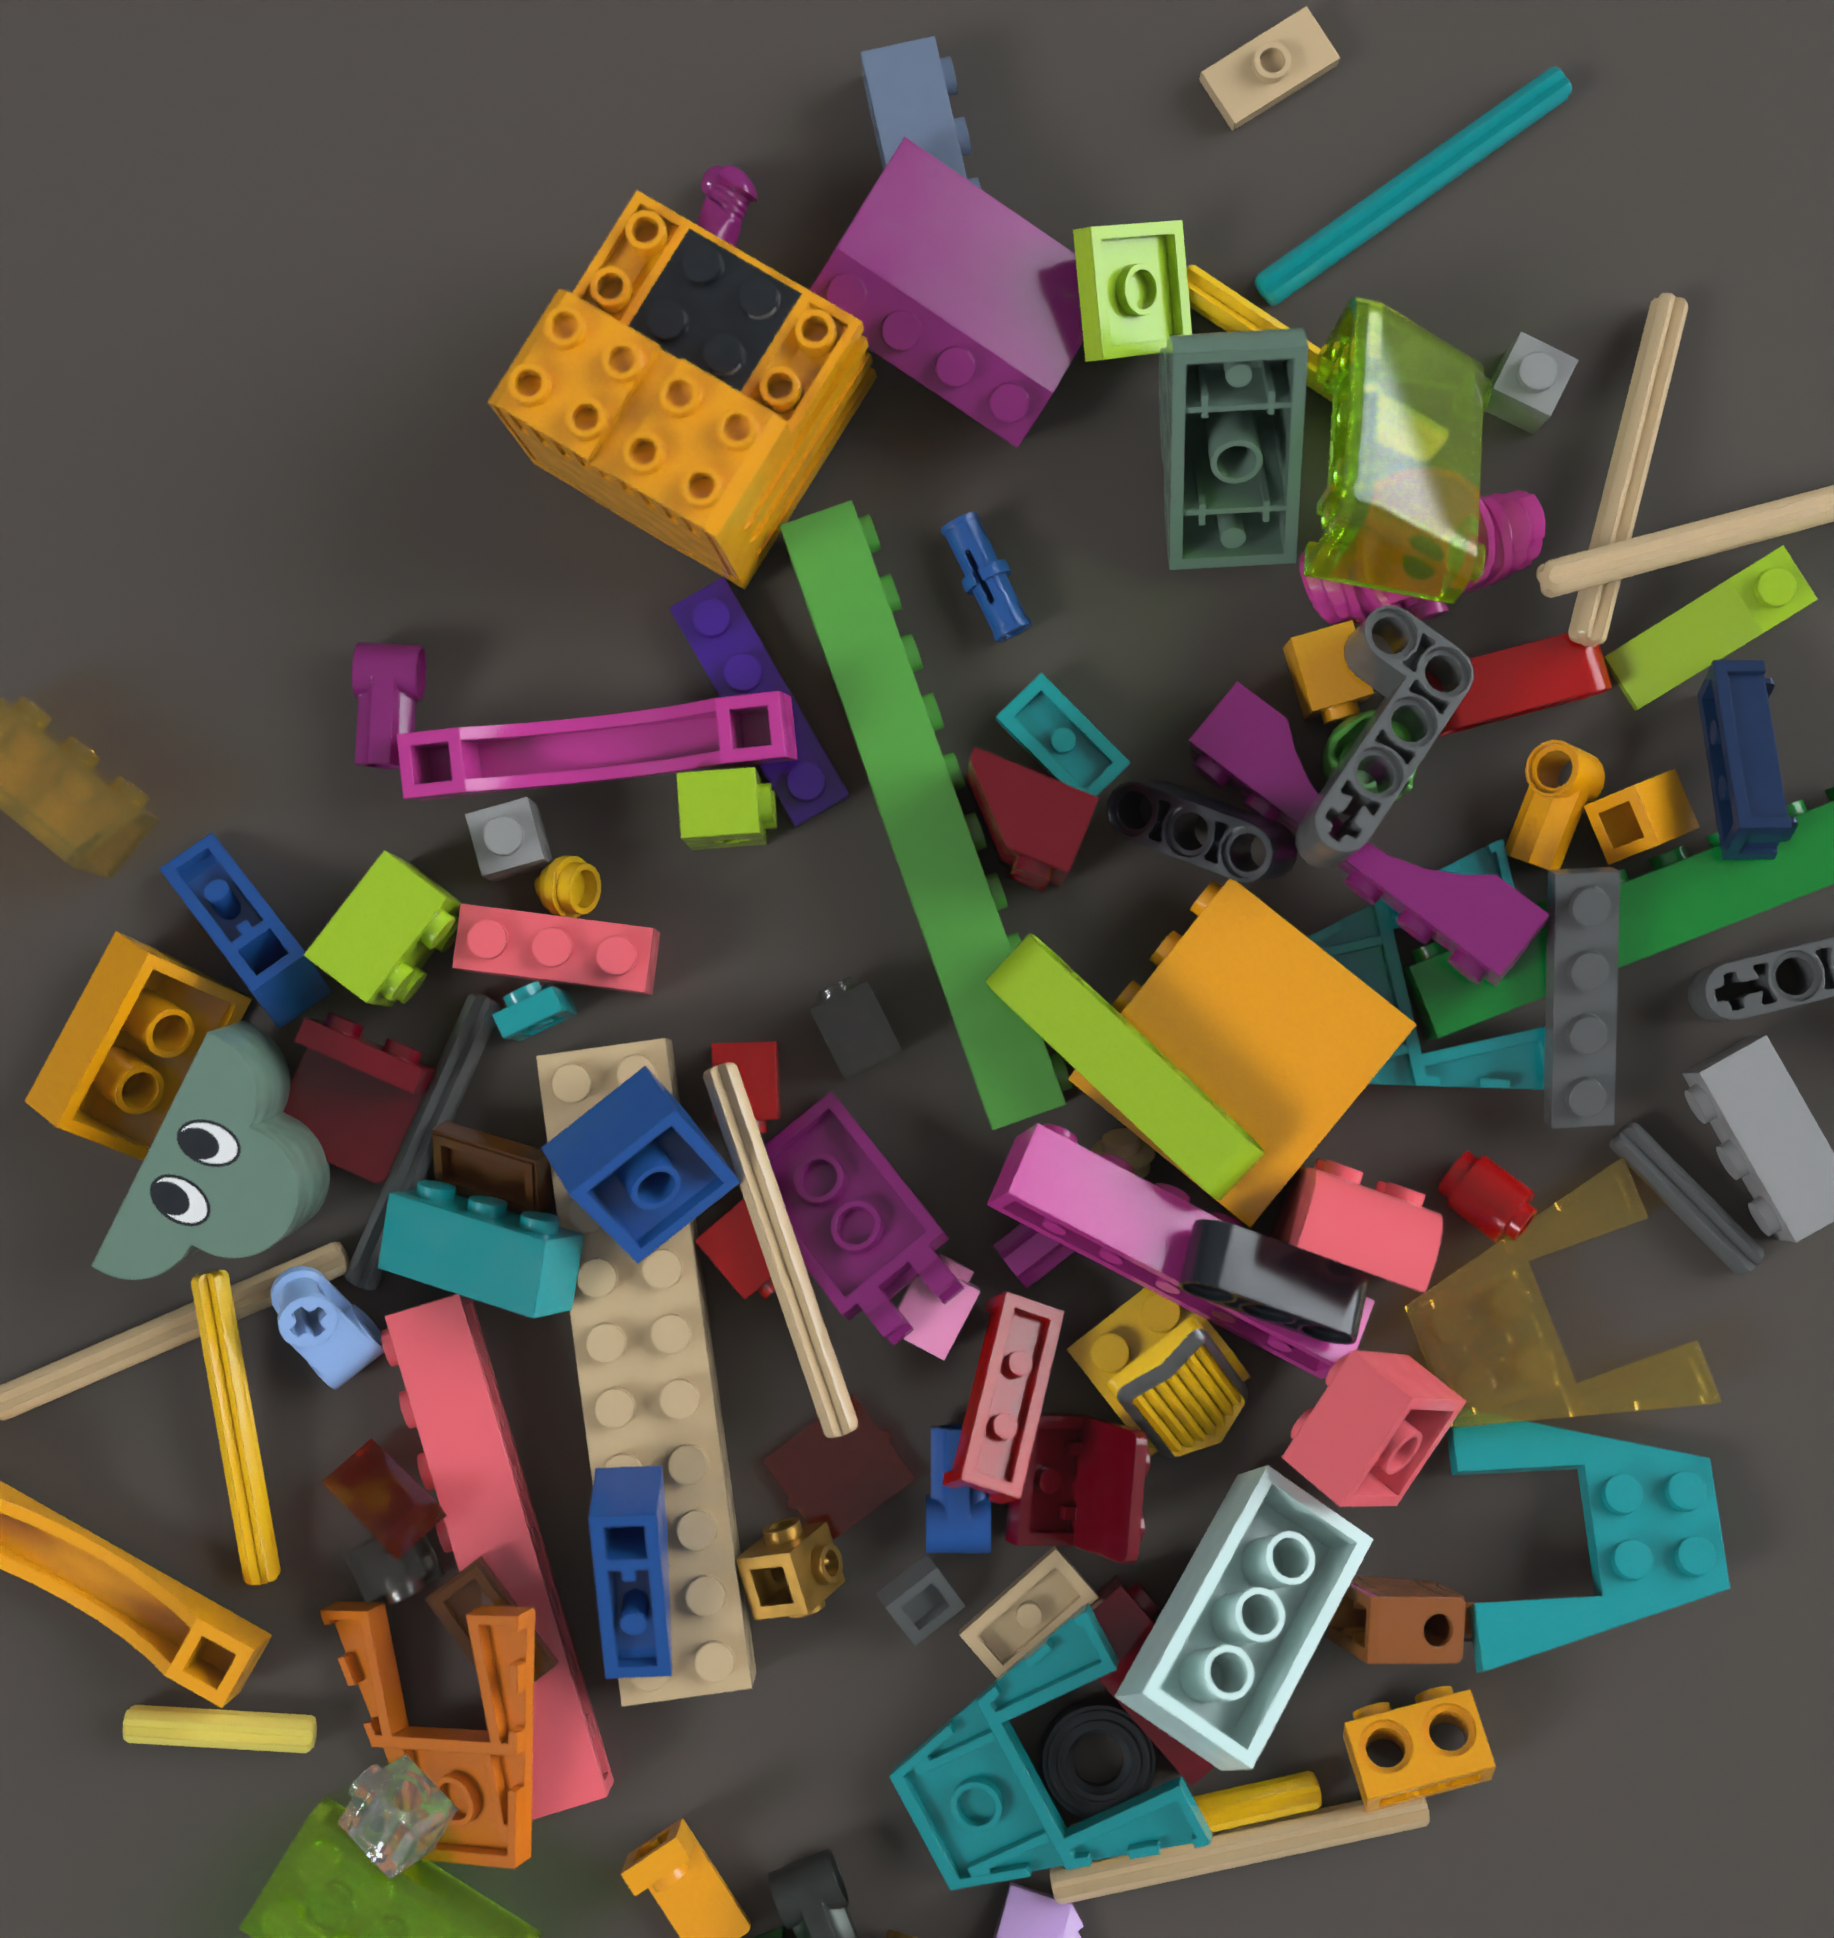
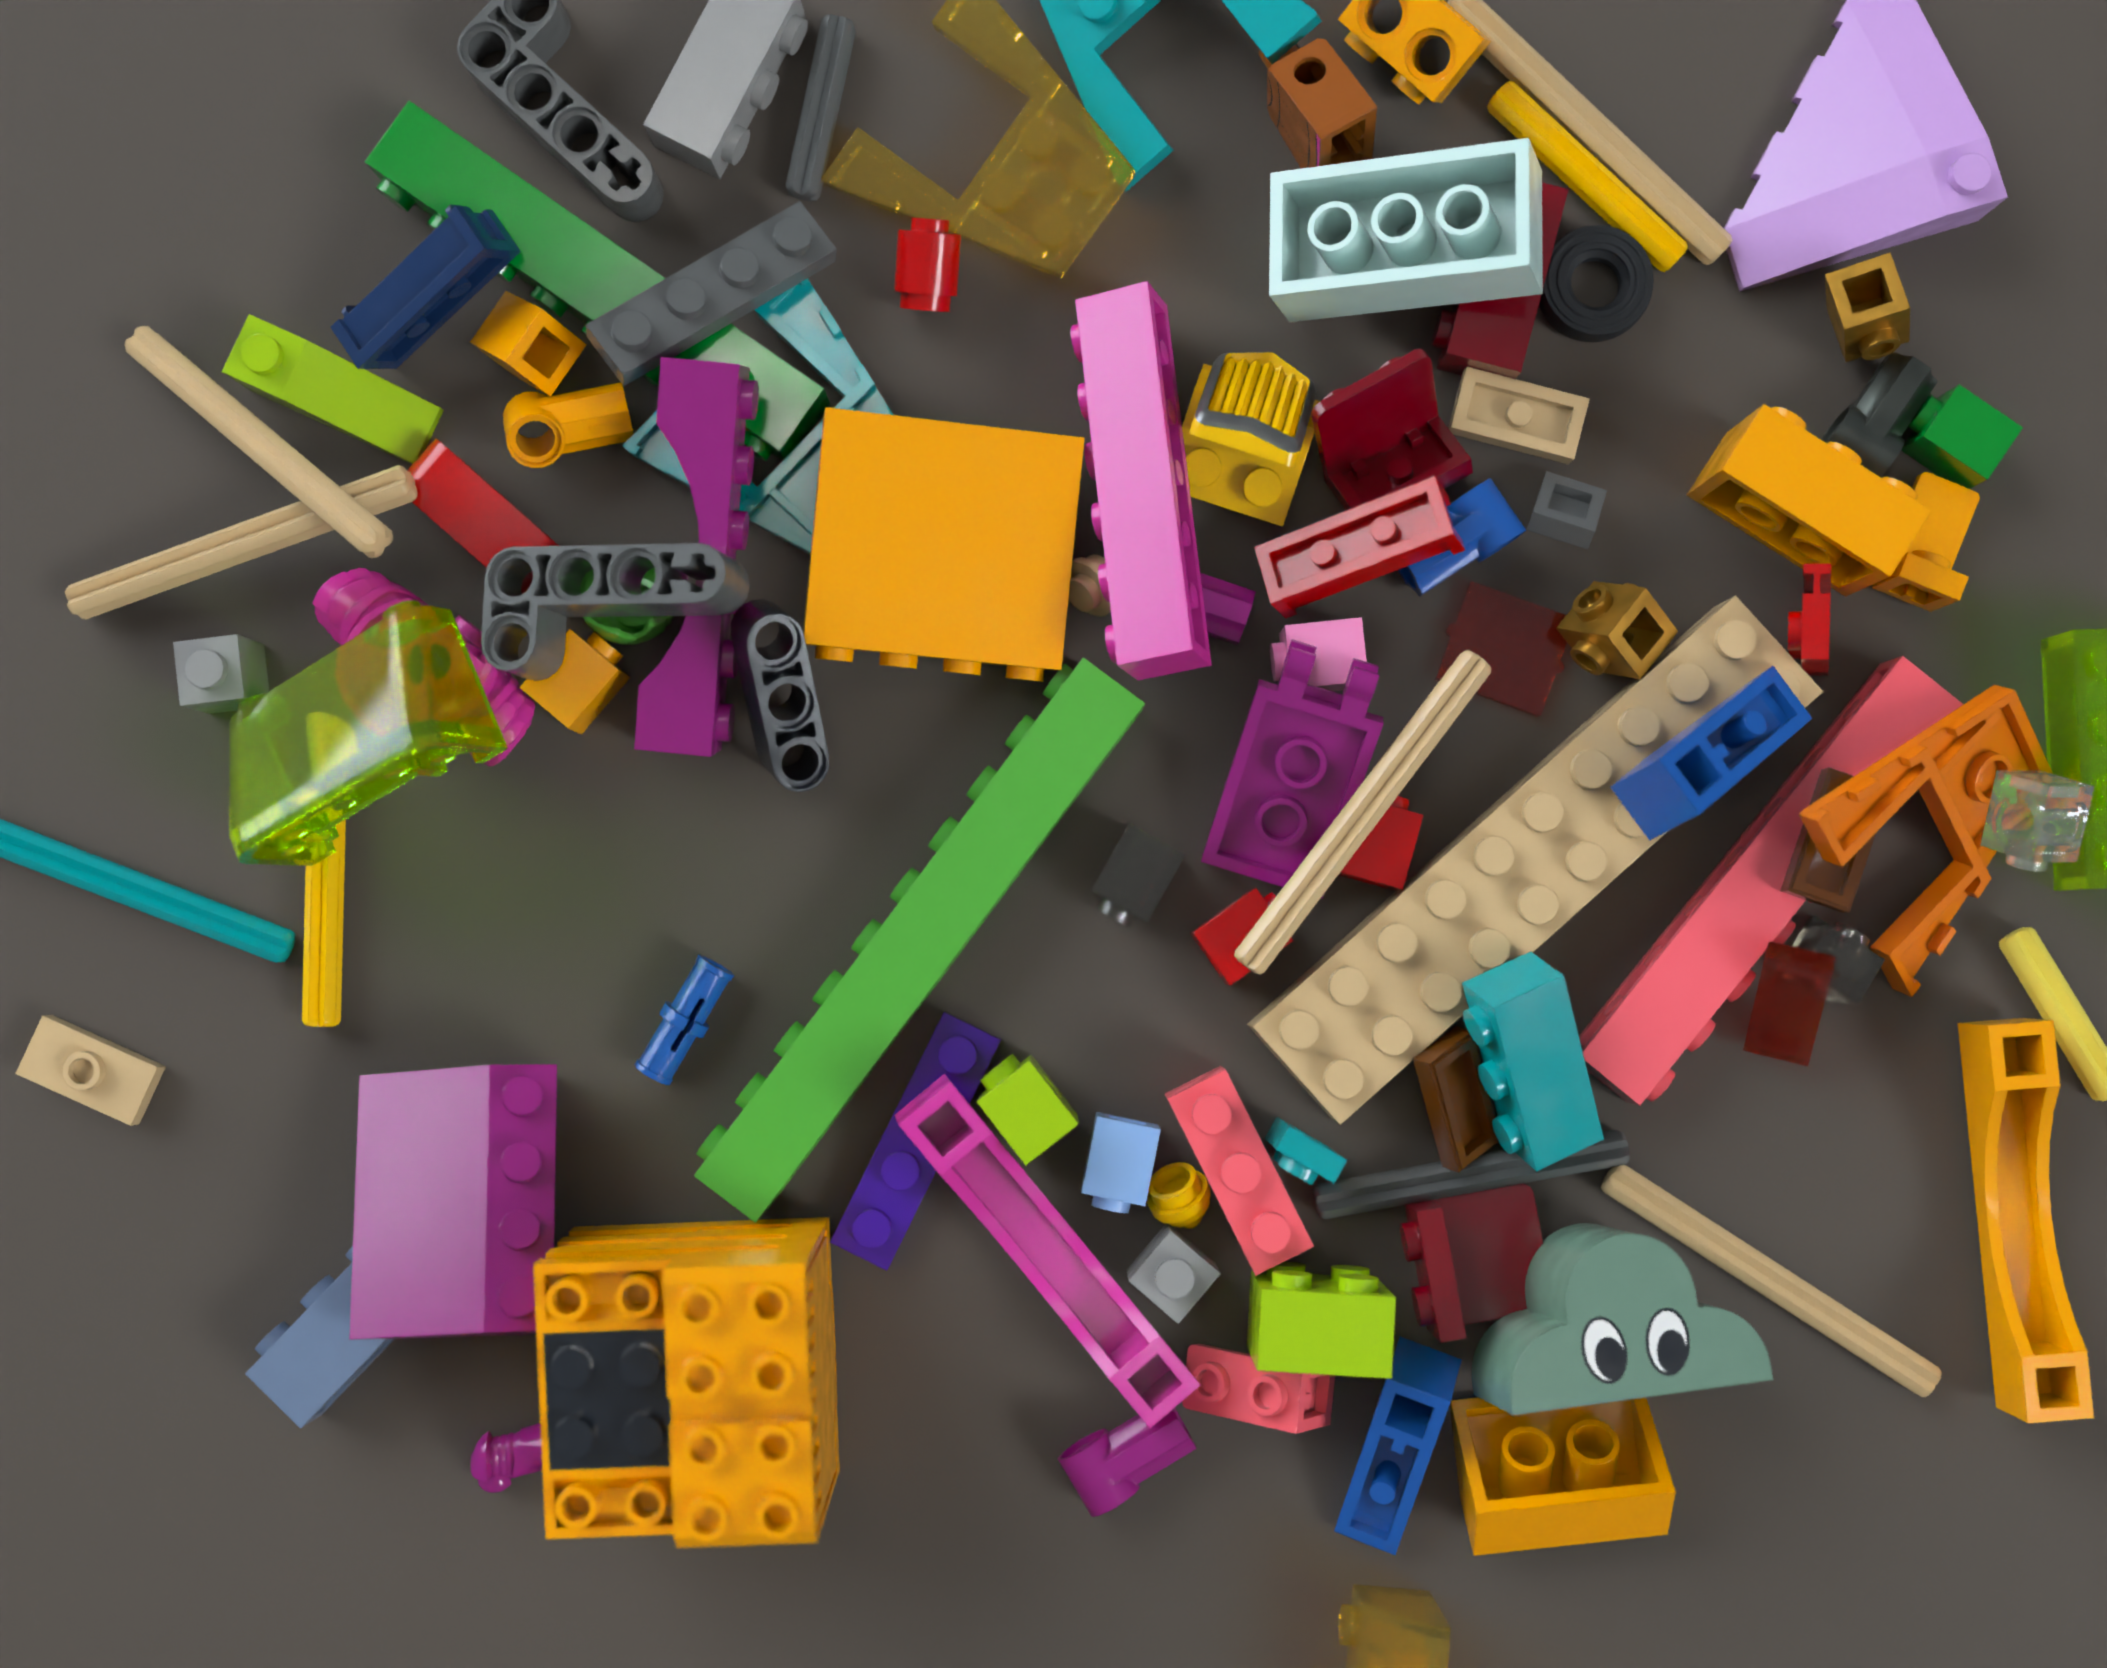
camera: 120 degrees left, 0 degrees up
(235, 1427) = (1812, 1169): yellow axle -> none
(324, 1325) = (1680, 1152): light blue piece -> none
(354, 846) = (1264, 1398): none -> coral bracket
(628, 857) = (1119, 1162): none -> light blue brick
(639, 1165) = (1375, 974): blue slope -> none
(679, 1733) = (1811, 627): none -> red plate
(789, 1809) = (1810, 499): none -> light orange brick
(984, 1800) = (1694, 347): teal wing -> none
(1029, 818) = (866, 841): dark red slope -> none
(1061, 738) = (780, 863): teal plate -> none
(1125, 1067) = (1021, 626): lime beam -> none
(1131, 288) = (356, 1056): lime plate -> none
(1232, 446) = (435, 883): sand green brick -> none
(1274, 1281) = (1117, 385): black beam -> none
(1361, 1227) = (1025, 346): coral brick -> none
(1372, 1428) = (1182, 231): coral brick -> none

